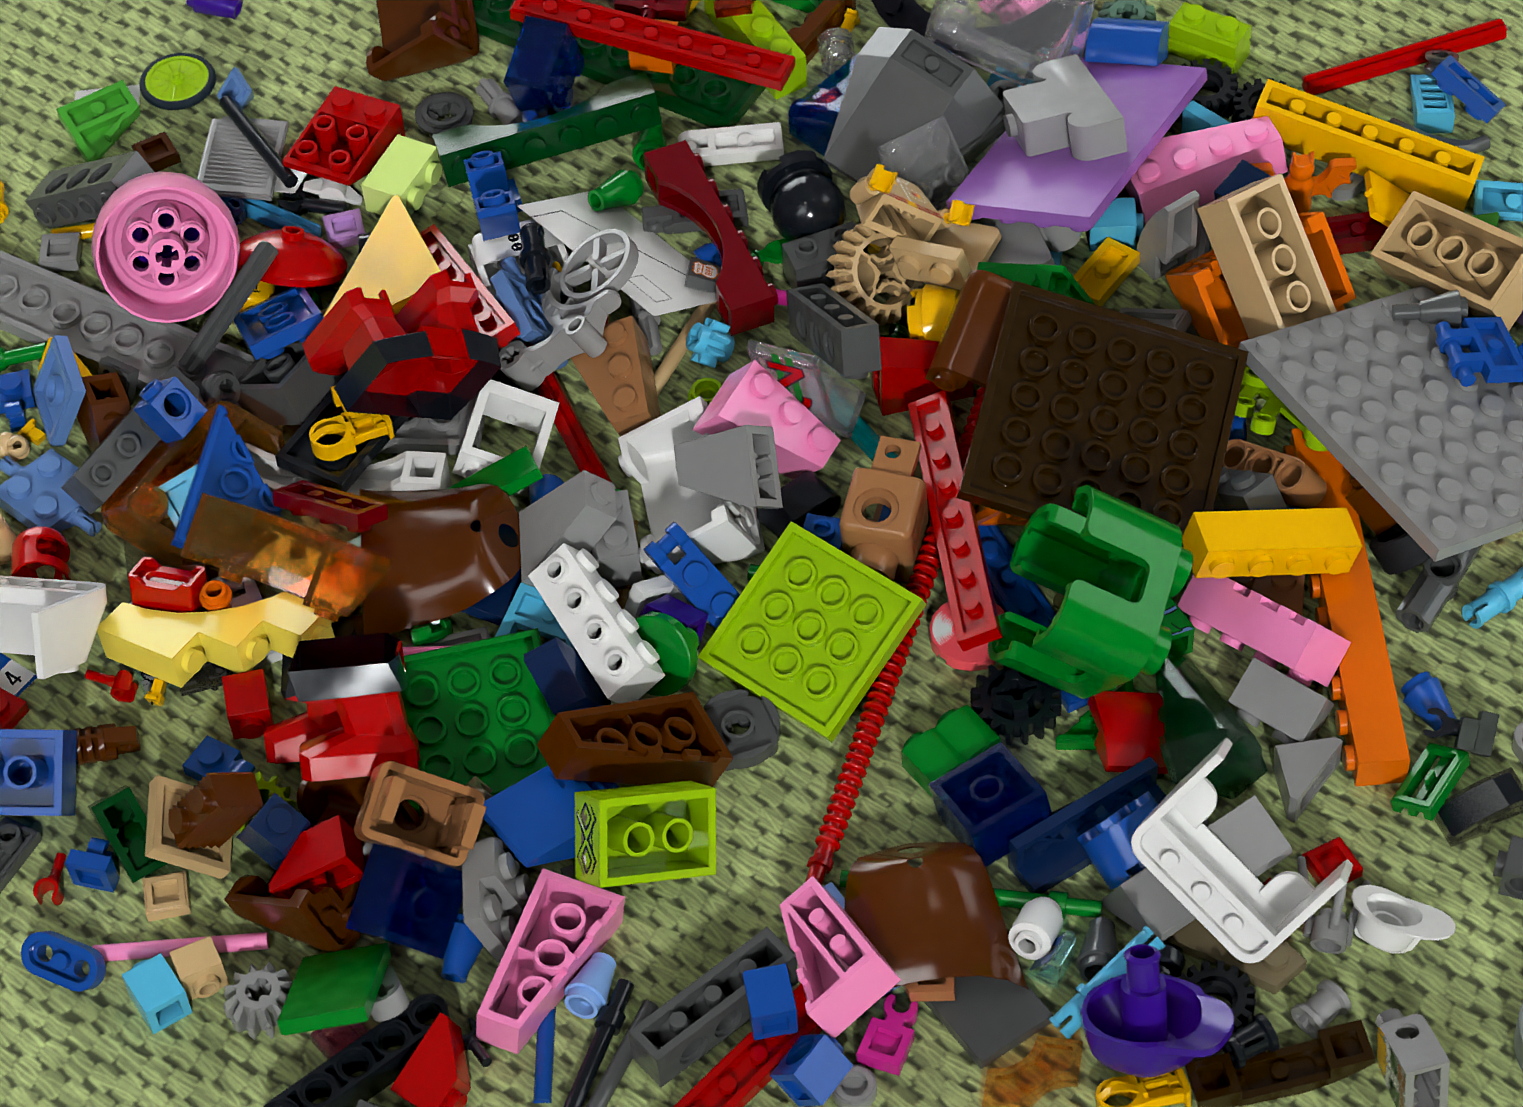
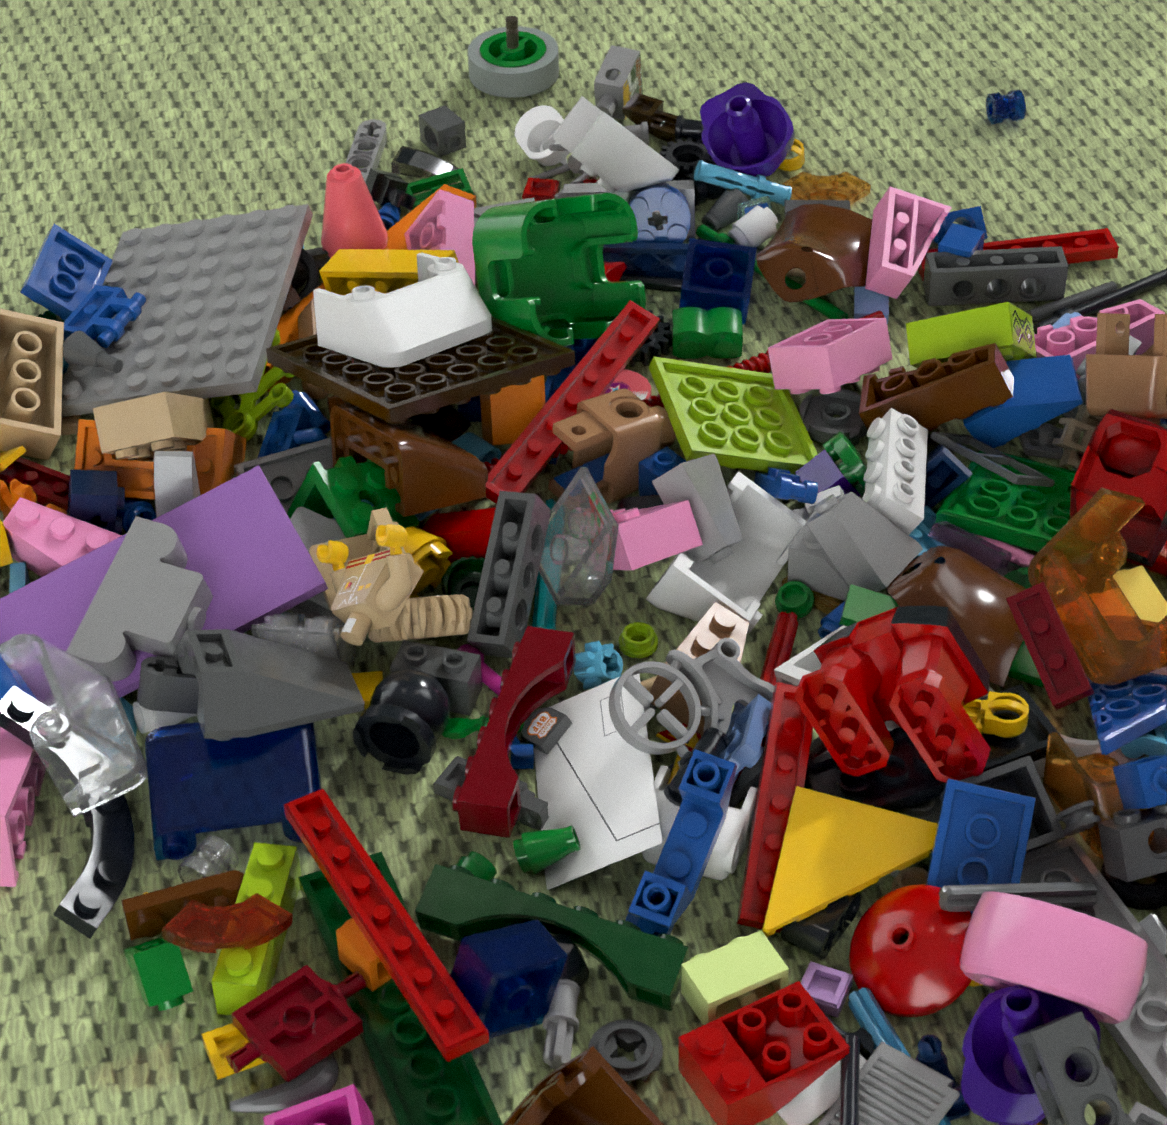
camera: 145 degrees left, 10 degrees down
(450, 624) = (971, 544): none -> clear purple tile
(539, 696) = (992, 459): none -> dark grey window
(736, 143) = (399, 839): white plate -> none
(781, 751) = (830, 355): none -> bright pink brick
(1116, 424) = (407, 322): none -> white windscreen
(1404, 602) = (350, 213): none -> coral cone

